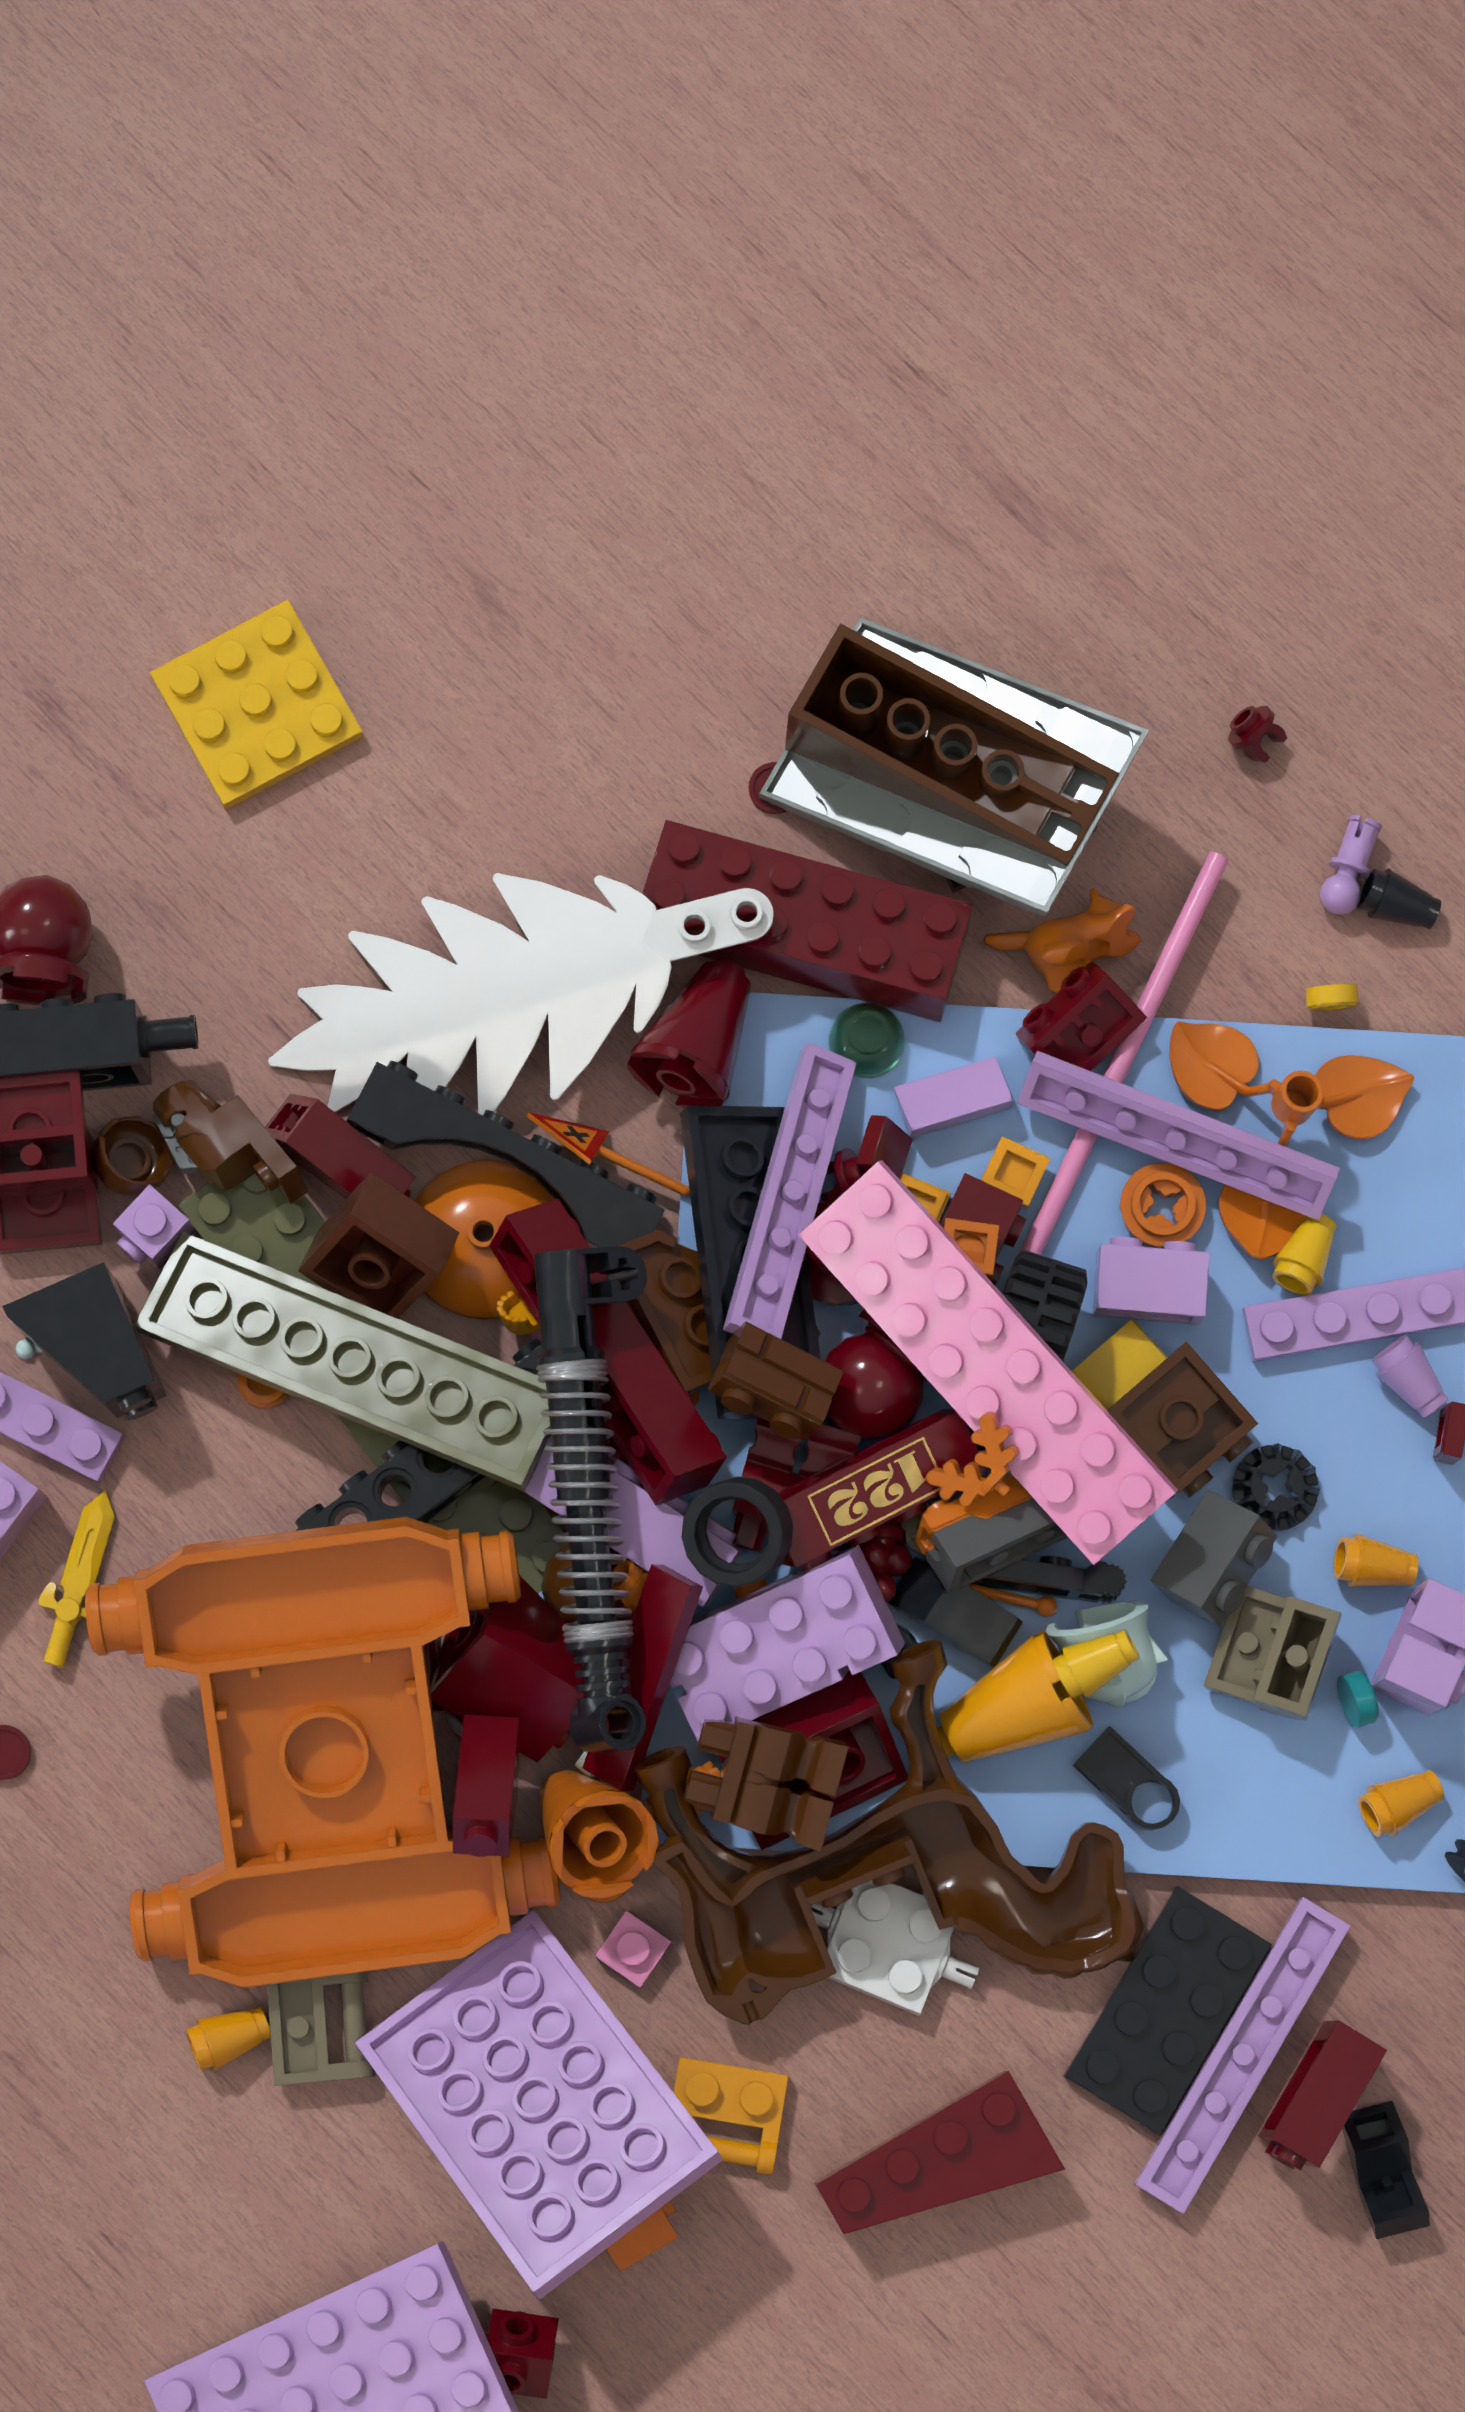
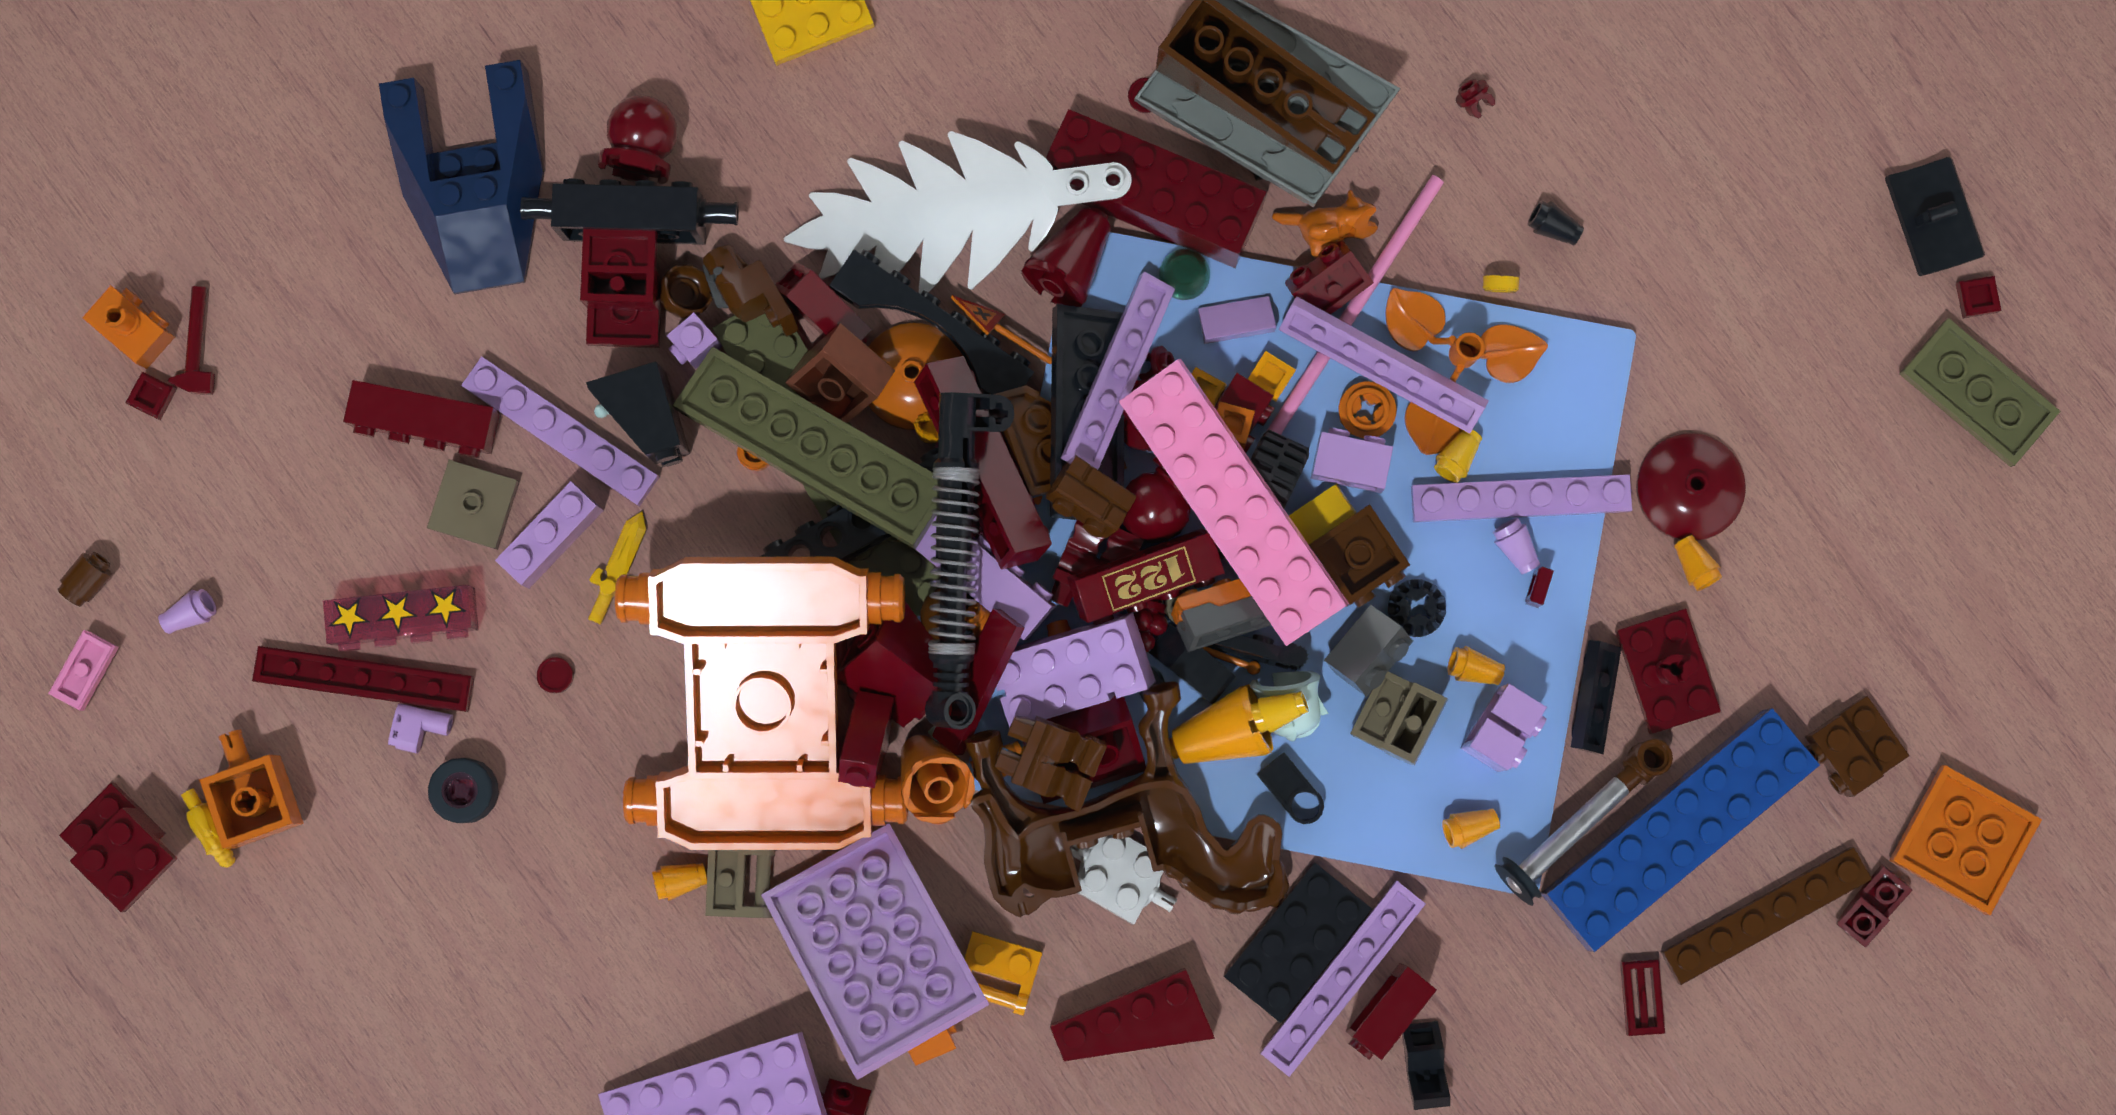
camera: 15 degrees right, 5 degrees up
(633, 1949) = (951, 857): bright pink plate -> none
(697, 1543) = (1027, 606): black tyre -> none
(884, 1142) = (1187, 347): dark red tile -> none
(994, 1457) = (1212, 579): orange animal -> none
(1341, 891) = (1517, 213): lavender pin -> none
(1357, 1699) = (1451, 755): teal tile -> none

